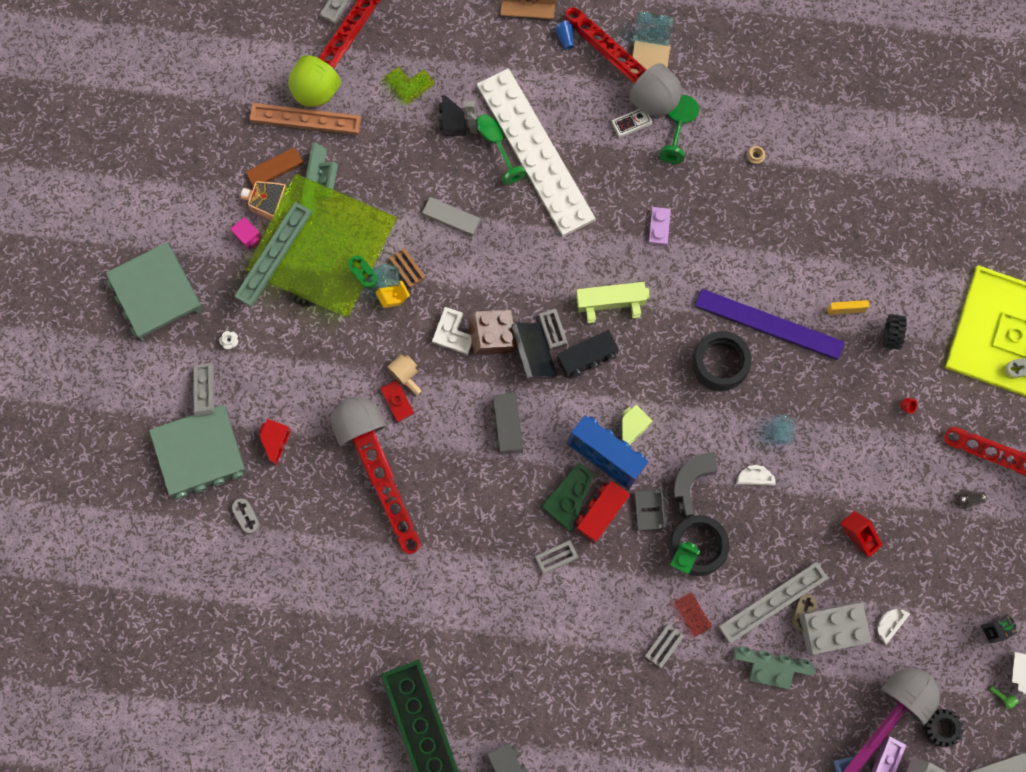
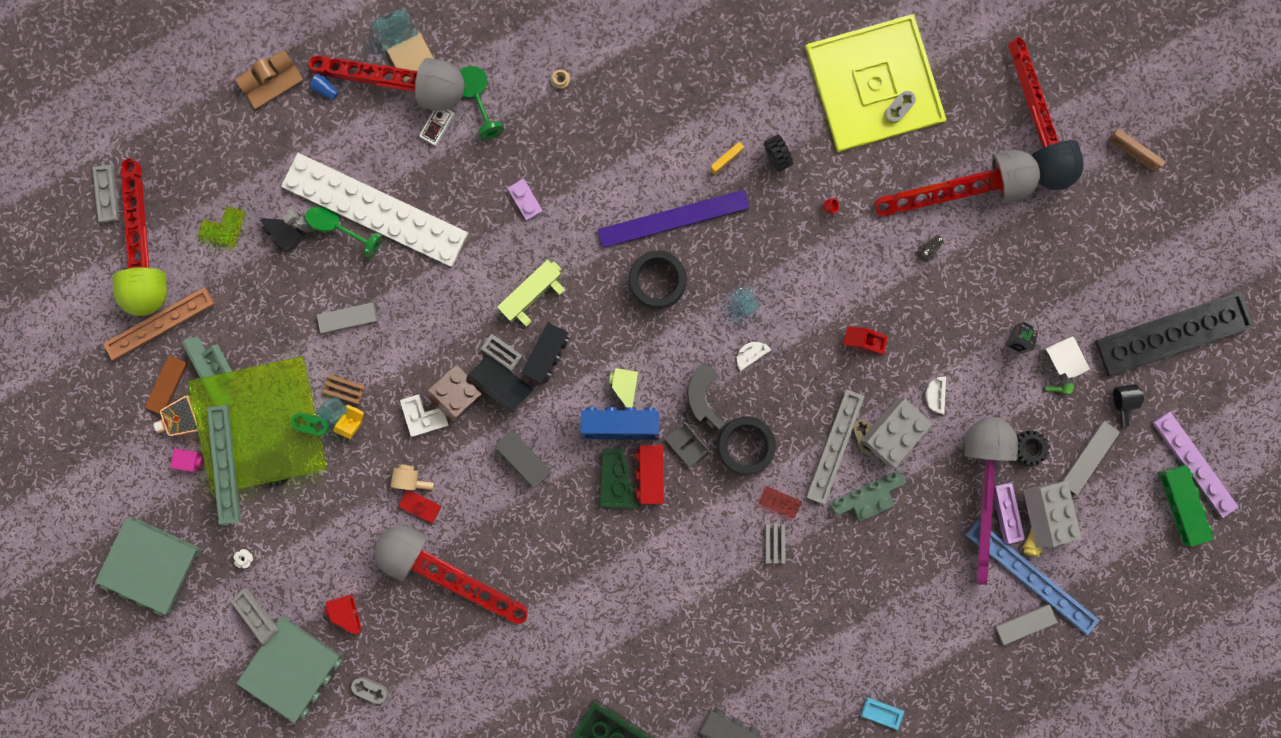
camera: 35 degrees left, 10 degrees up
(559, 564) = (648, 522): light grey tile -> none
(685, 557) = (743, 467): green bracket -> none

